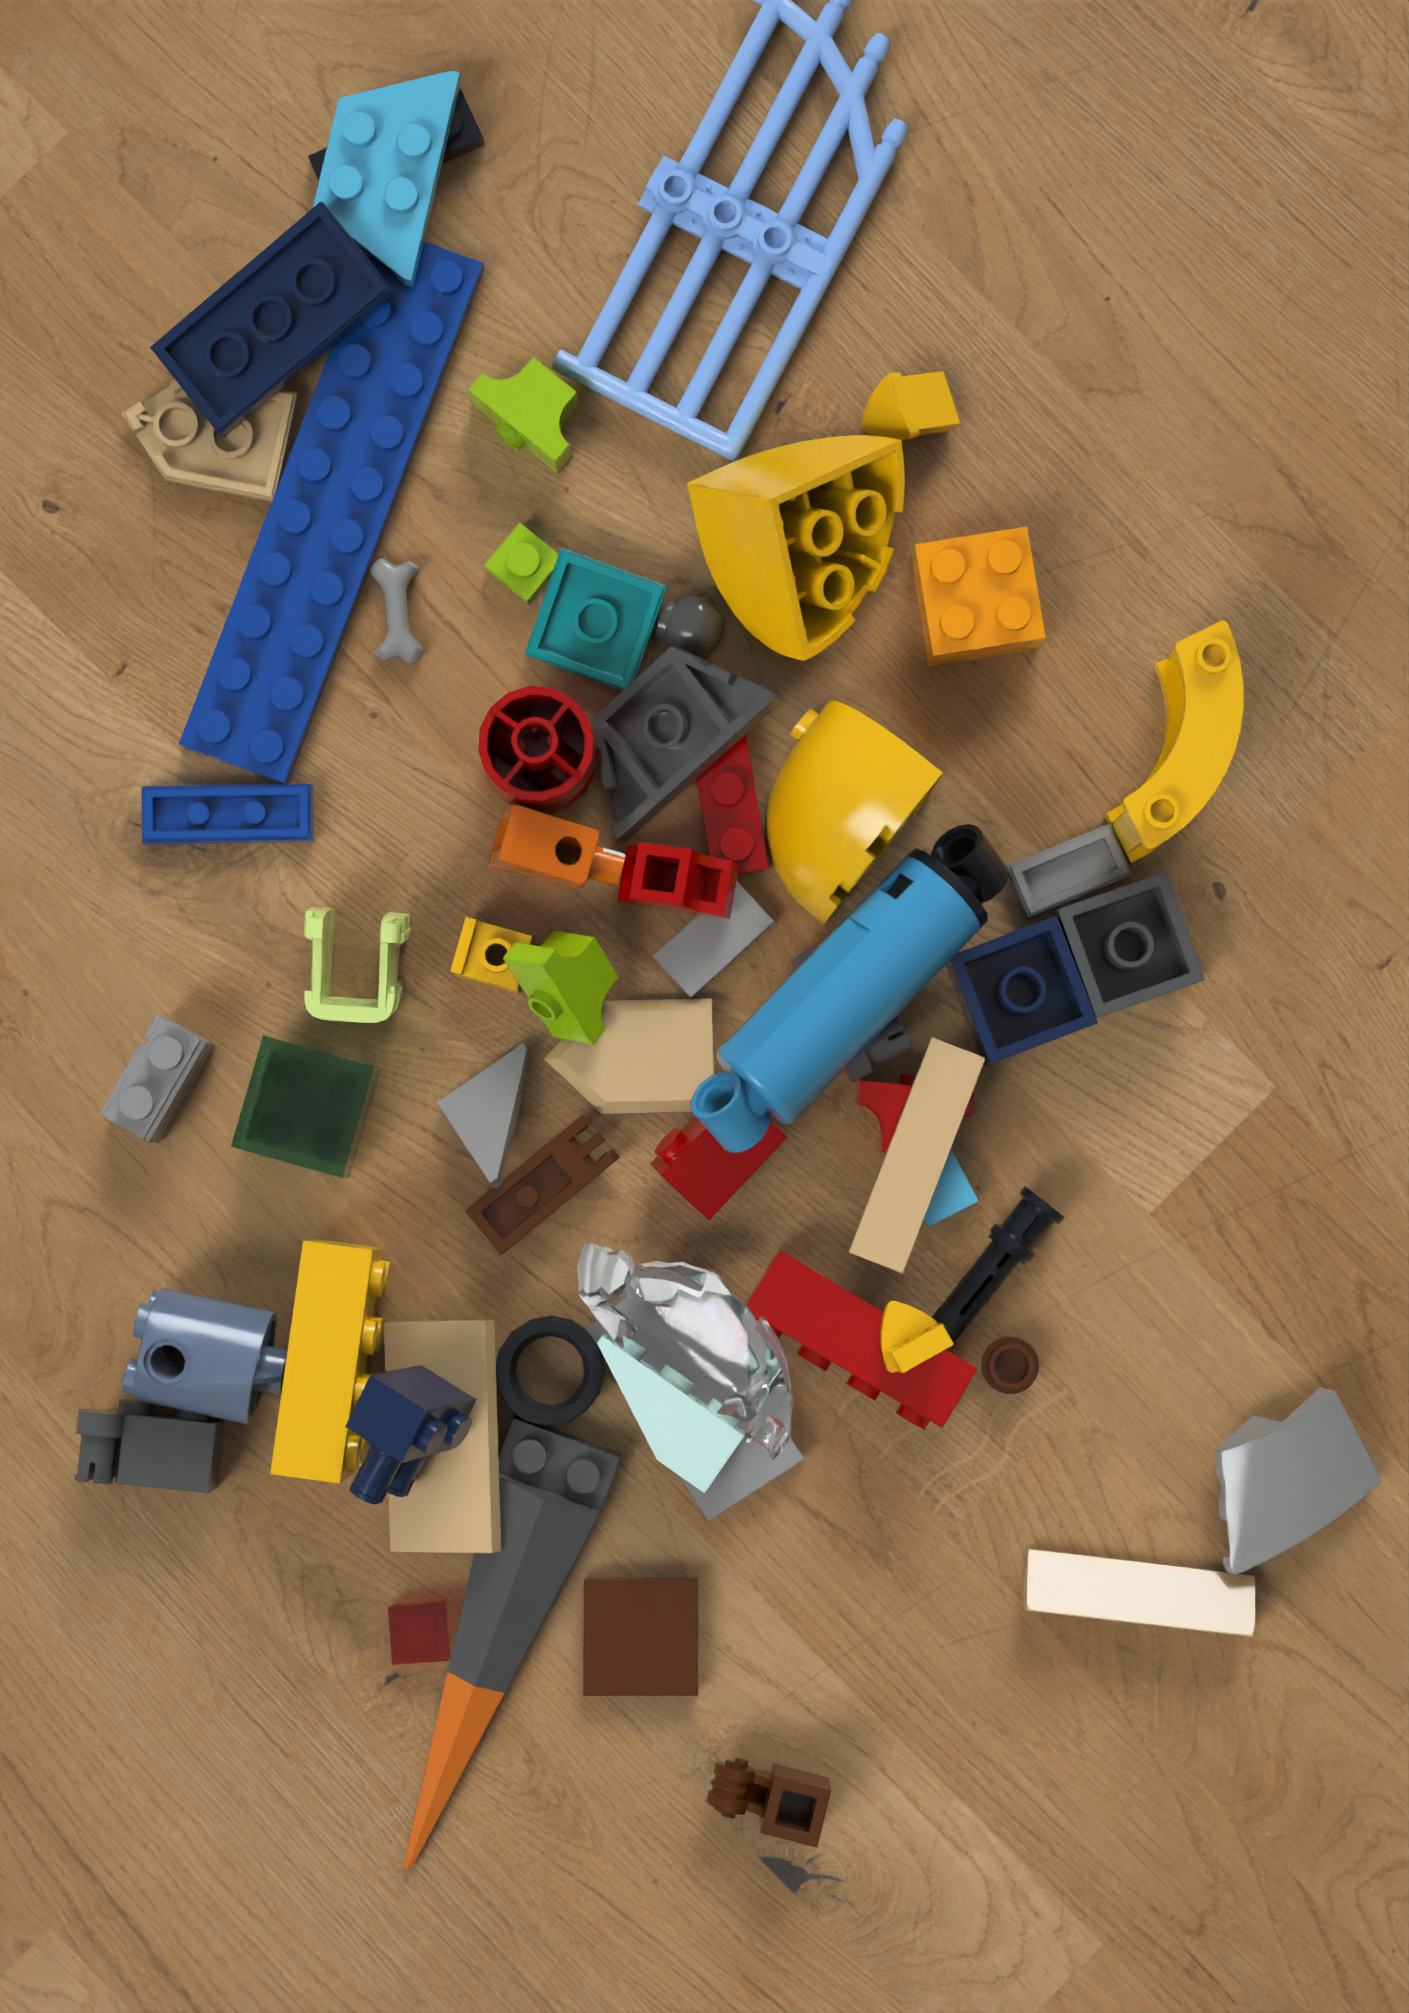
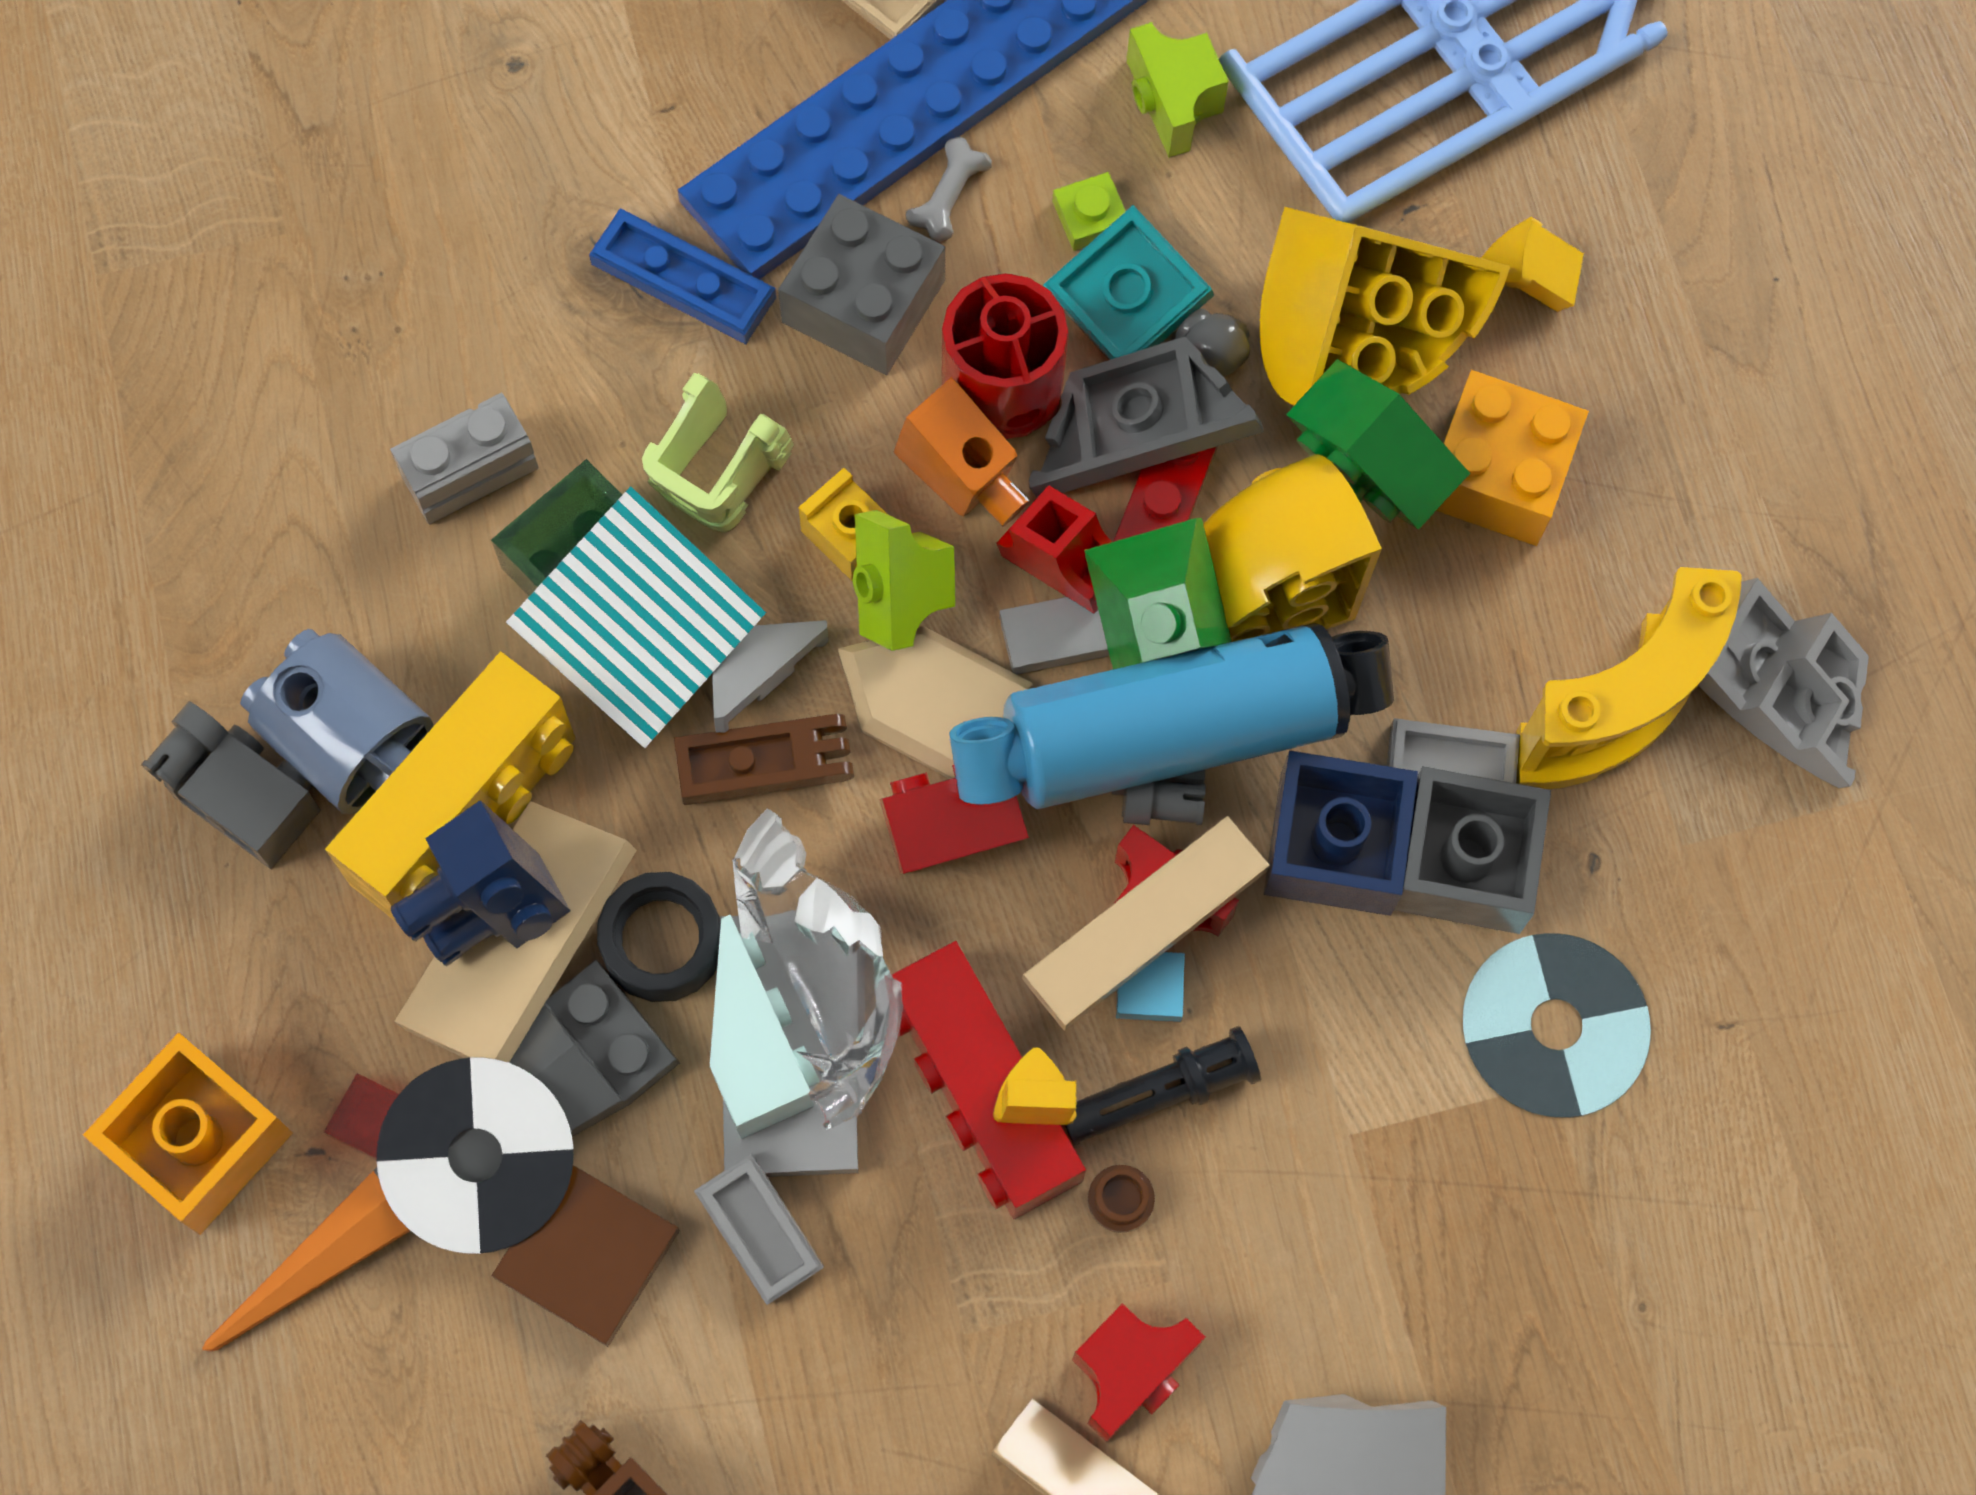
camera: 30 degrees right, 15 degrees down
(296, 1730) = (188, 1134): none -> light orange brick
(381, 743) = (862, 284): none -> dark grey brick
(382, 1140) = (636, 617): none -> sticker
(508, 1573) = (475, 1214): none -> sticker
(758, 1546) = (759, 1229): none -> light grey tile
(782, 893) = (1157, 594): none -> green slope
(879, 665) = (1377, 445): none -> green brick
(1091, 1487) = (1133, 1366): none -> red brick
(1248, 1085) = (1546, 1079): none -> clear light blue sticker
(1298, 653) = (1792, 683): none -> light grey slope

